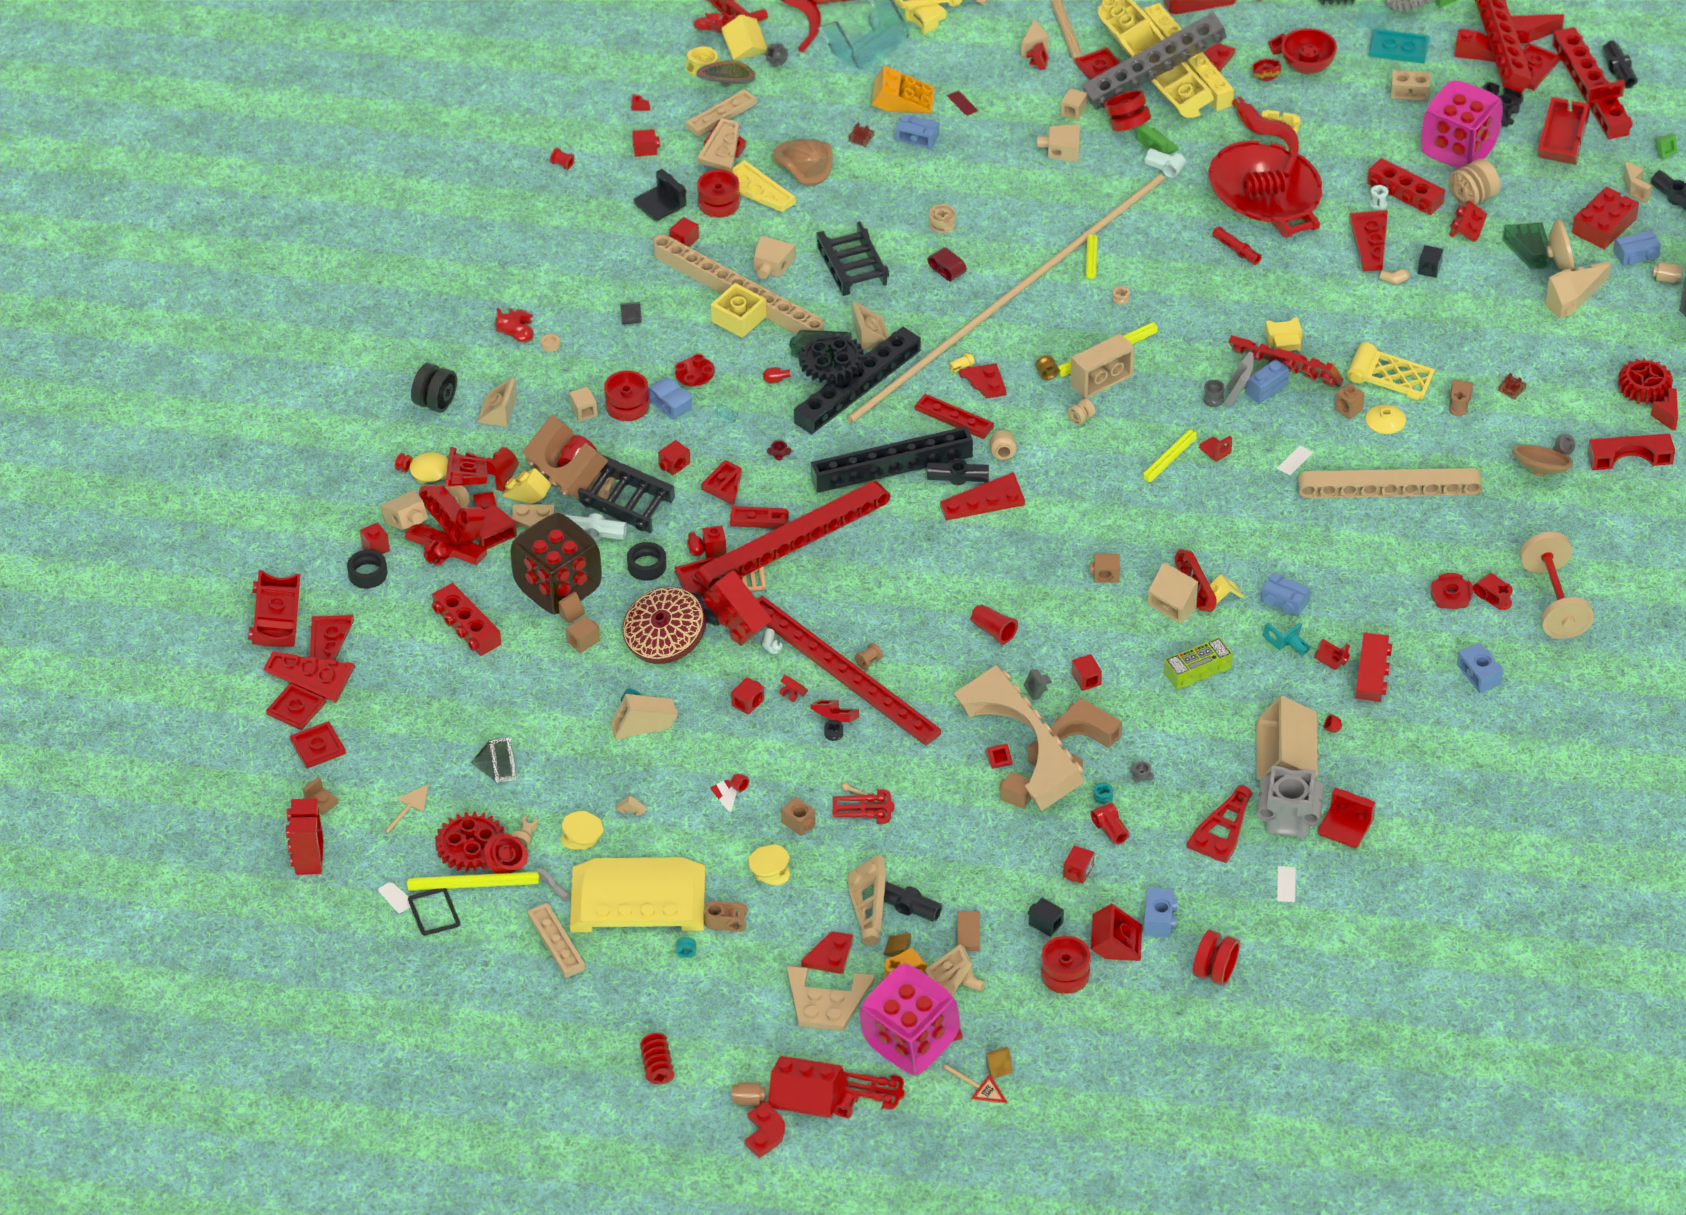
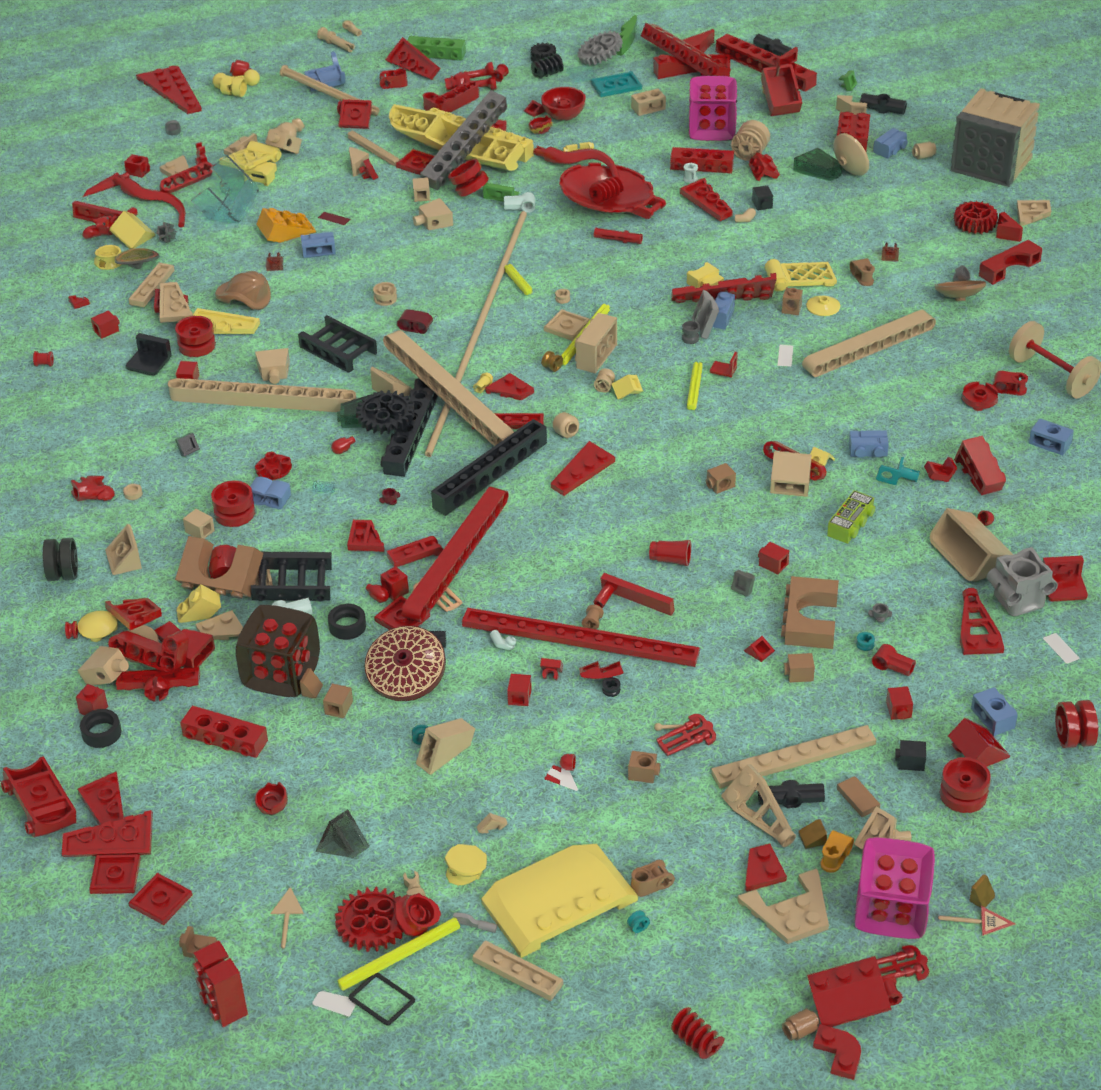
camera: 30 degrees left, 5 degrees down
(463, 699) = (271, 798): none -> red hair
(502, 467) = (166, 598): red slope -> none
(674, 457) = (308, 534): red brick -> none
(736, 608) = (463, 621): red piece -> none
(738, 310) = (277, 409): light yellow brick -> none
(770, 864) = (652, 816): light yellow hat -> none
(911, 354) = (447, 387): none -> tan beam
(912, 633) = (632, 592): none -> red piece
(948, 869) = (797, 755): none -> tan plate
(958, 472) = (547, 456): black piece -> none
(1054, 772) = (725, 601): tan arch -> none
(1097, 329) = (566, 324): none -> tan tile
(1098, 427) = (627, 385): none -> light yellow panel
(1571, 289) = (875, 180): tan wedge -> none

